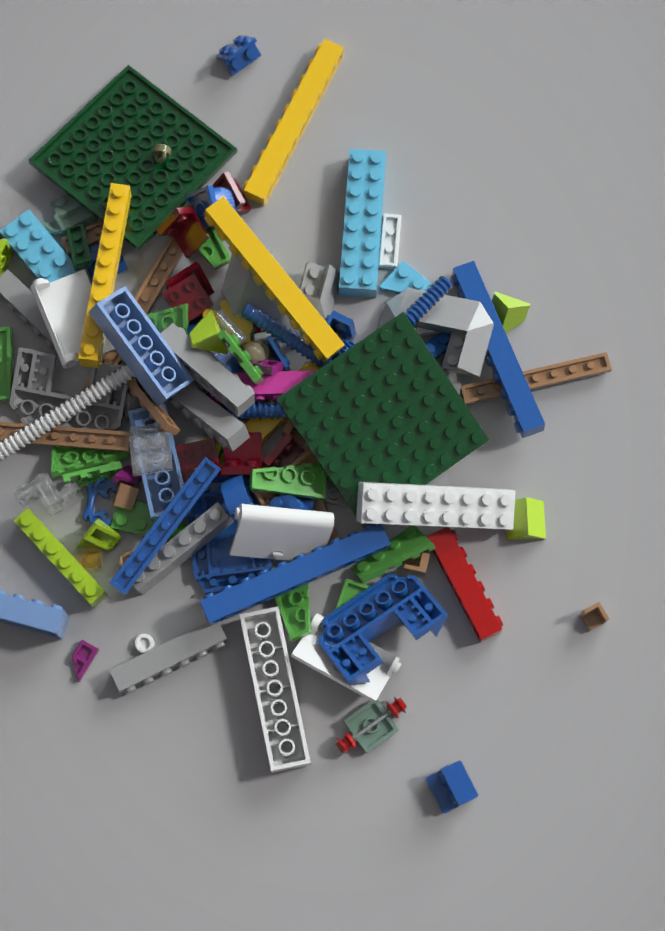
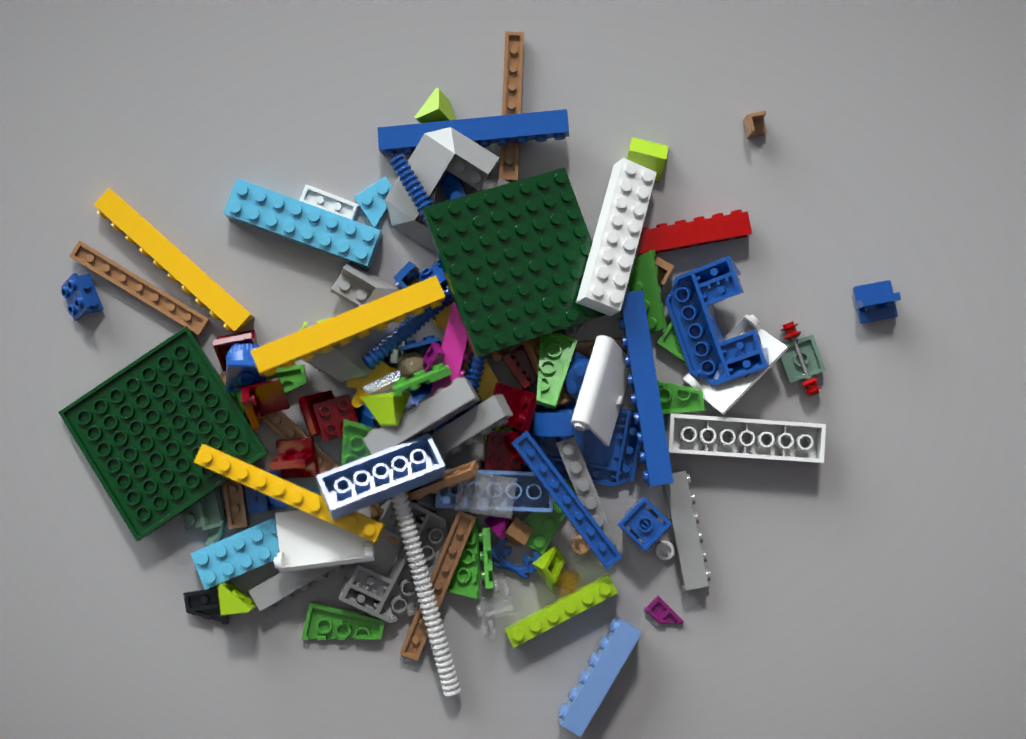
camera: 80 degrees left, 10 degrees up
(79, 246) = (247, 512): dark green tile -> none
(141, 275) = (296, 458): none -> dark red bracket
(161, 152) = (168, 401): olive tile -> none
(163, 610) = (644, 524): none -> blue piece
(260, 101) = (139, 288): none -> medium nougat plate

